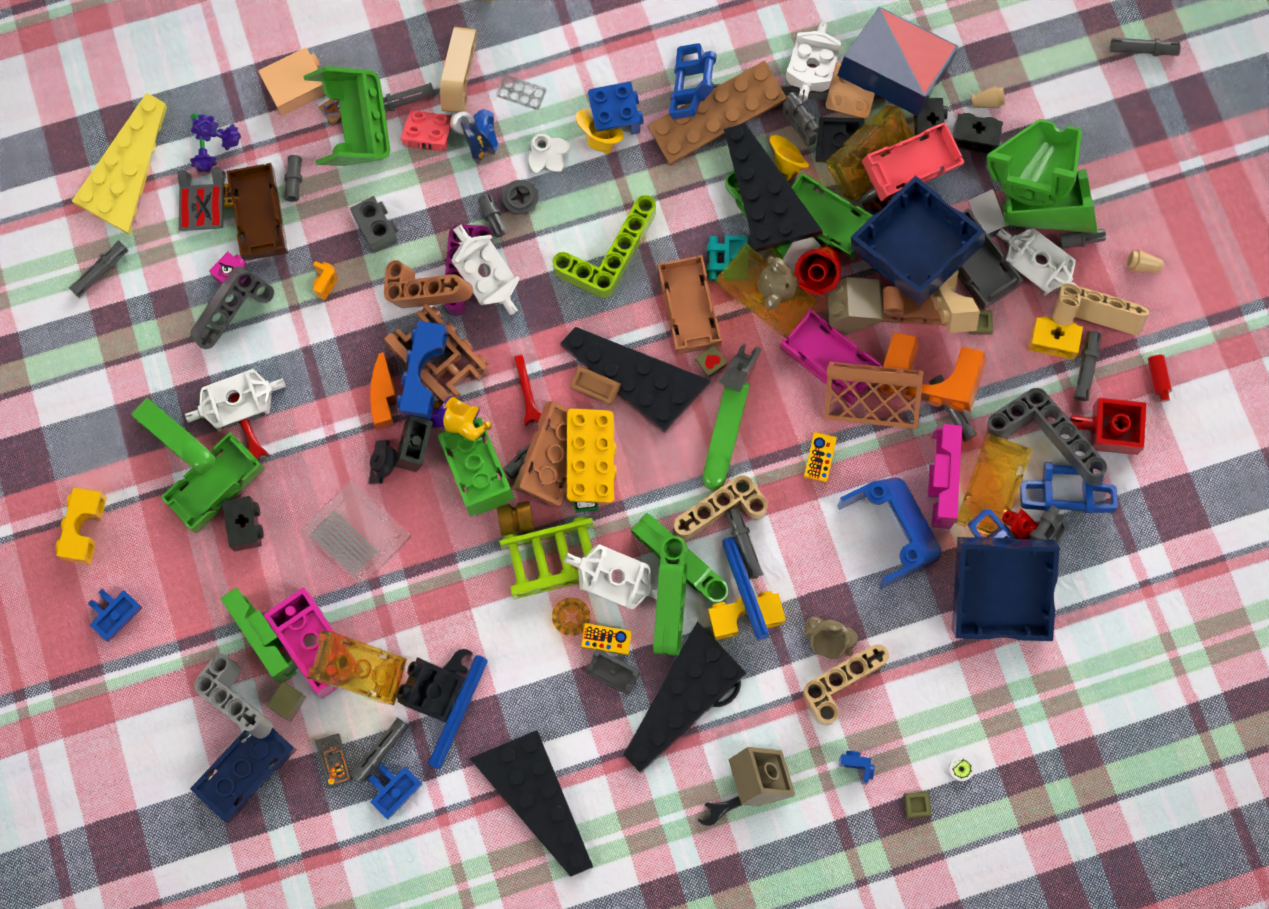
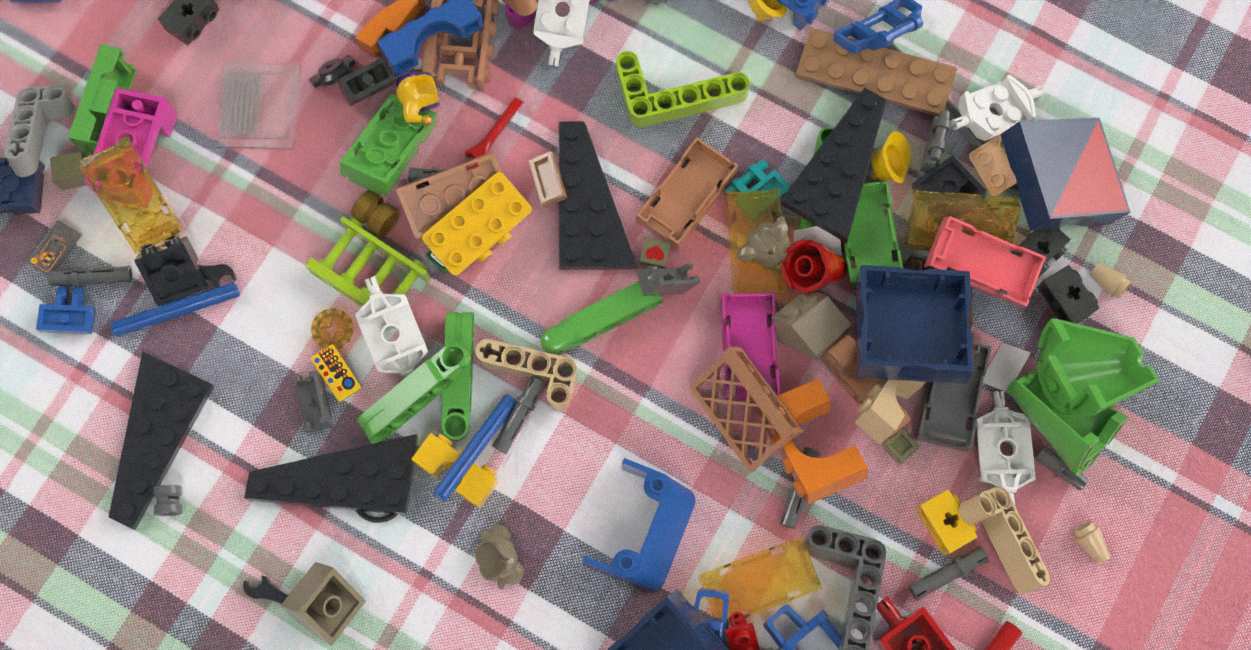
camera: 45 degrees right, 0 degrees up
(595, 825) = (167, 500): none -> dark grey wheel
(820, 457) = (653, 413): tile -> none
(847, 679) = (474, 603): tan beam -> none
(945, 475) = (729, 531): dark pink piece -> none

